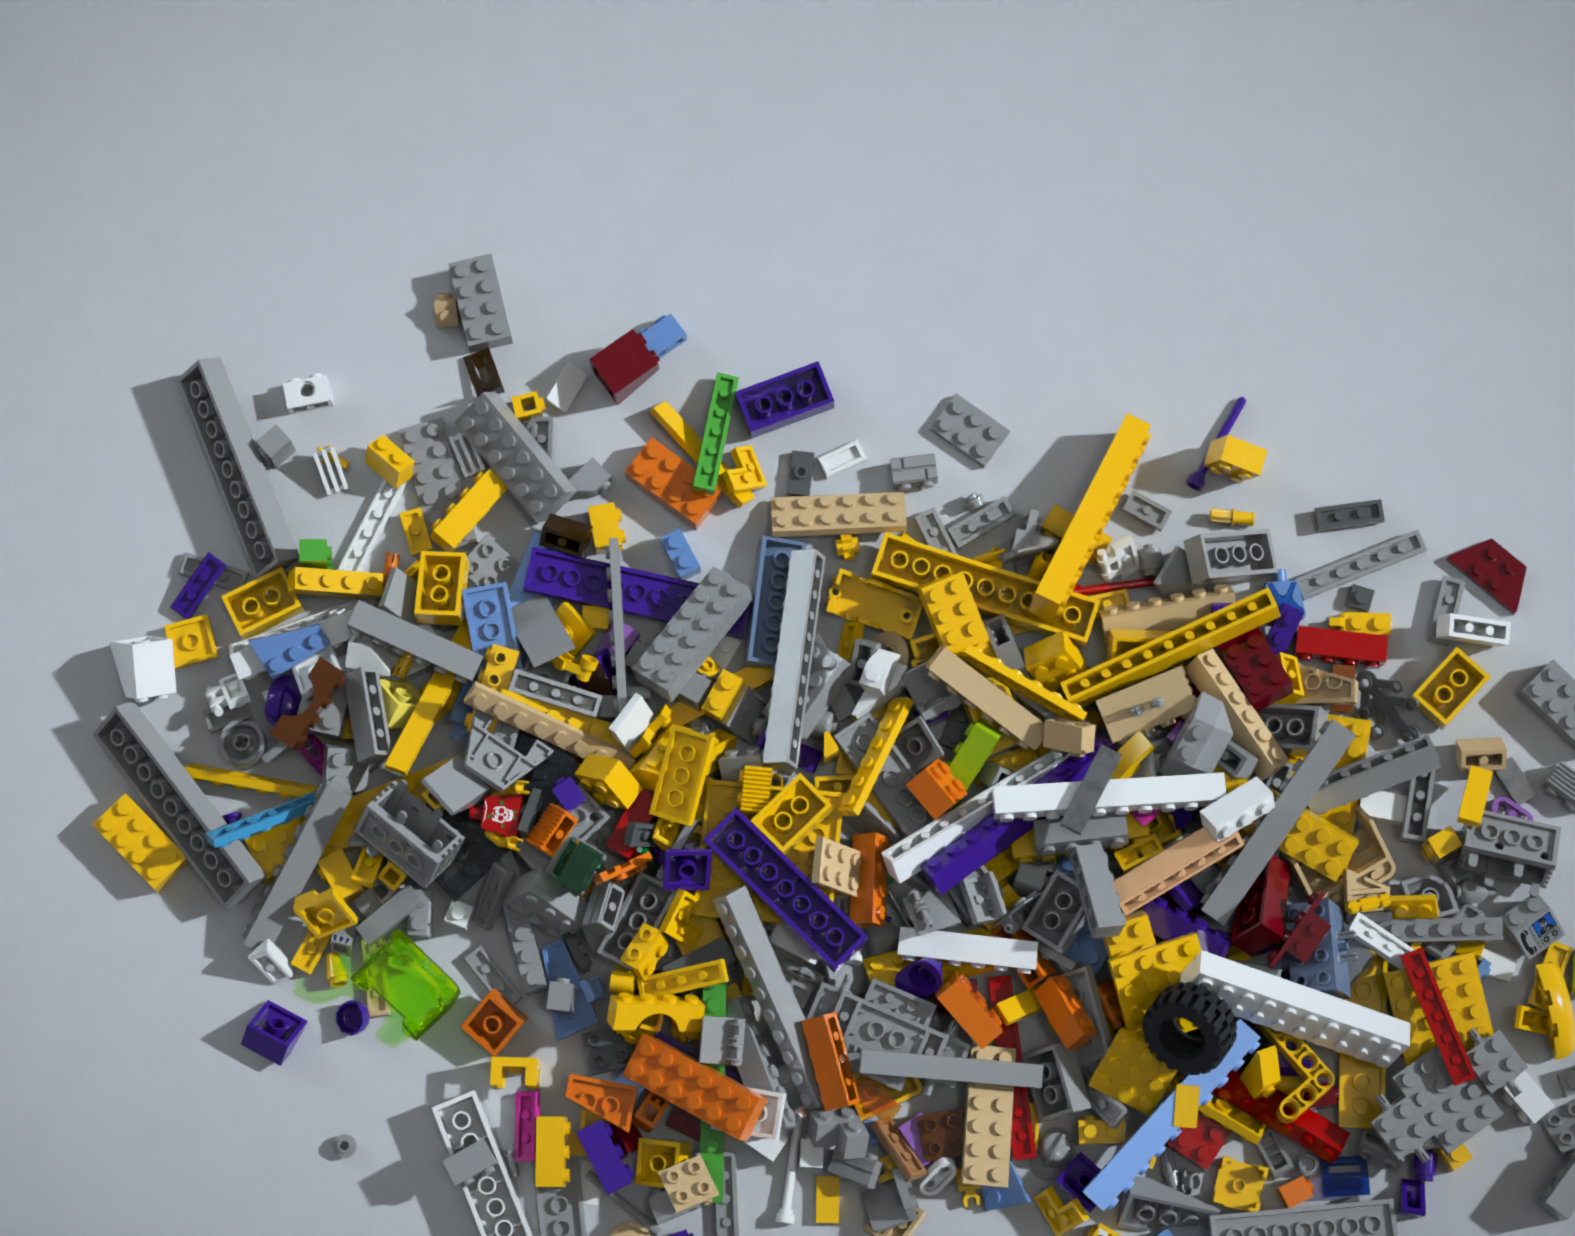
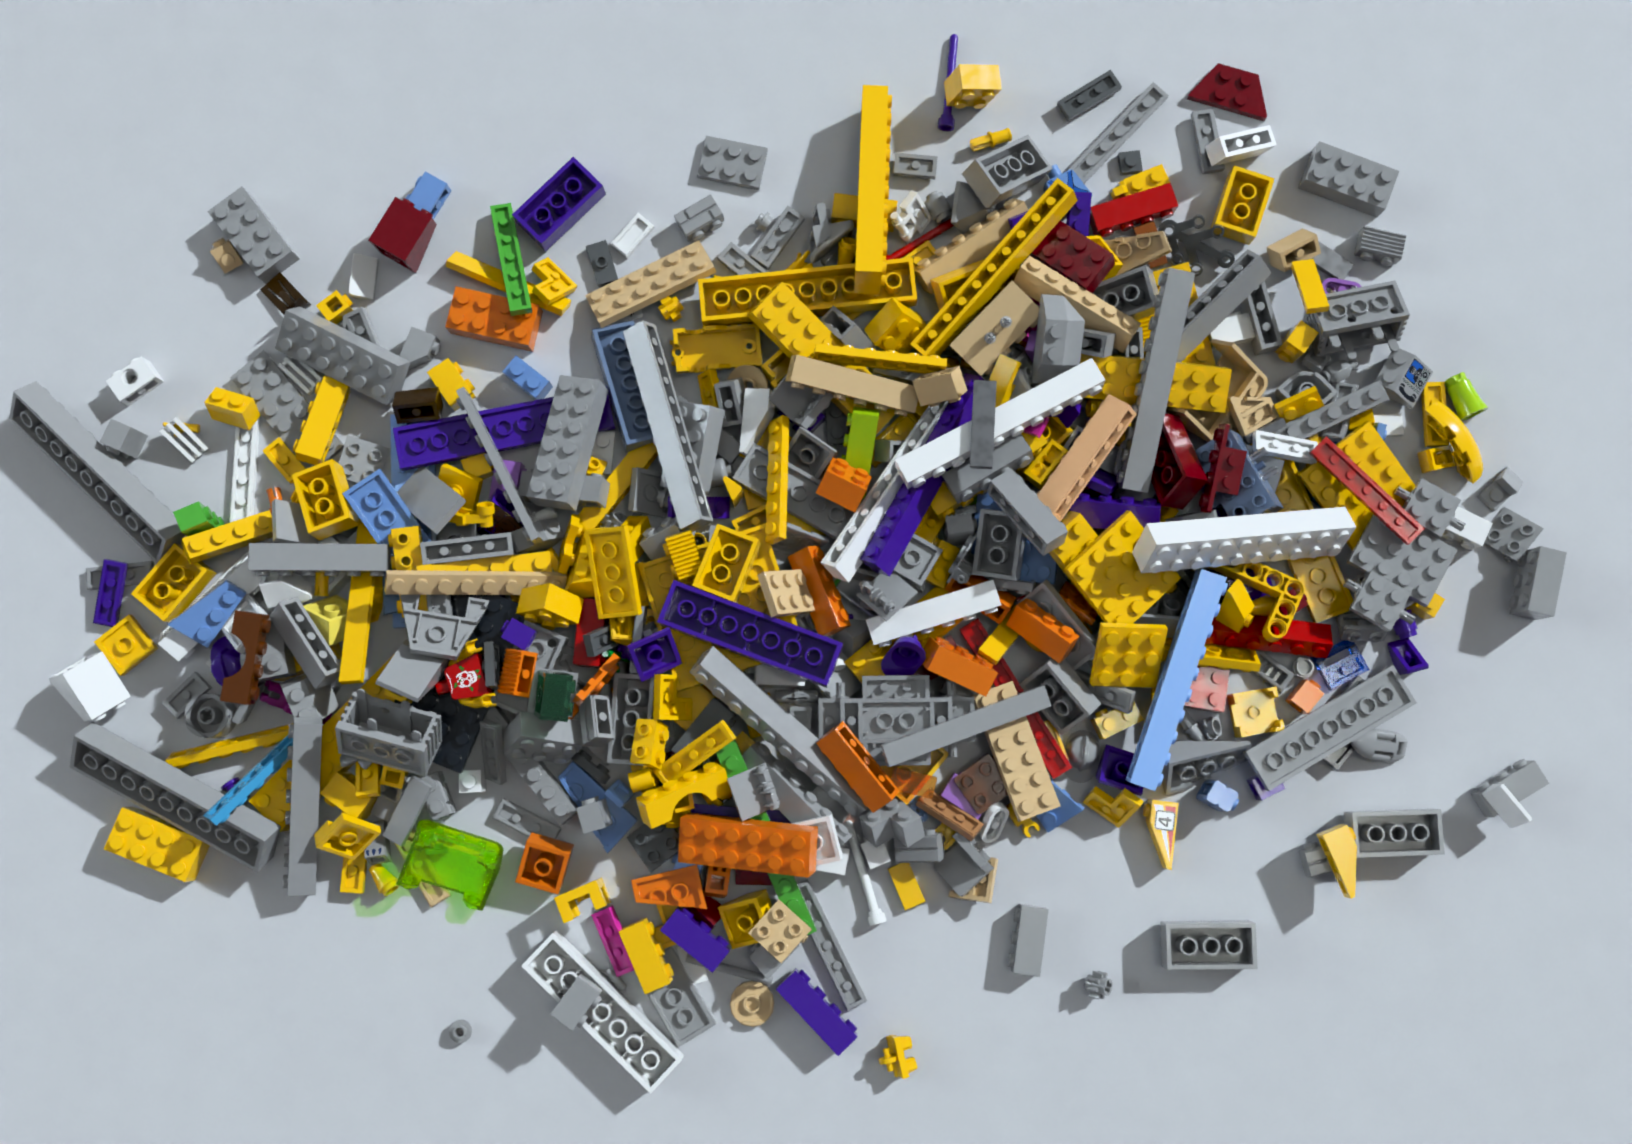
camera: 25 degrees left, 5 degrees up
(229, 693) = (178, 677): white plate -> none
(271, 962) = (321, 898): white slope -> none
(273, 1032) = (351, 959): dark purple slope -> none
(352, 1017) = (416, 914): dark purple hair -> none
(631, 722) = (547, 544): white tile -> none
(722, 695) = (618, 485): yellow brick -> none
(879, 672) = (747, 404): white slope -> none
(983, 898) = (928, 563): light grey bracket -> none
(1186, 1106) = (1188, 666): yellow sticker -> none
(1203, 1010) = (1170, 576): black tyre -> none
(1237, 809) = (1119, 384): white brick -> none
(1368, 903) = (1260, 419): yellow axle -> none

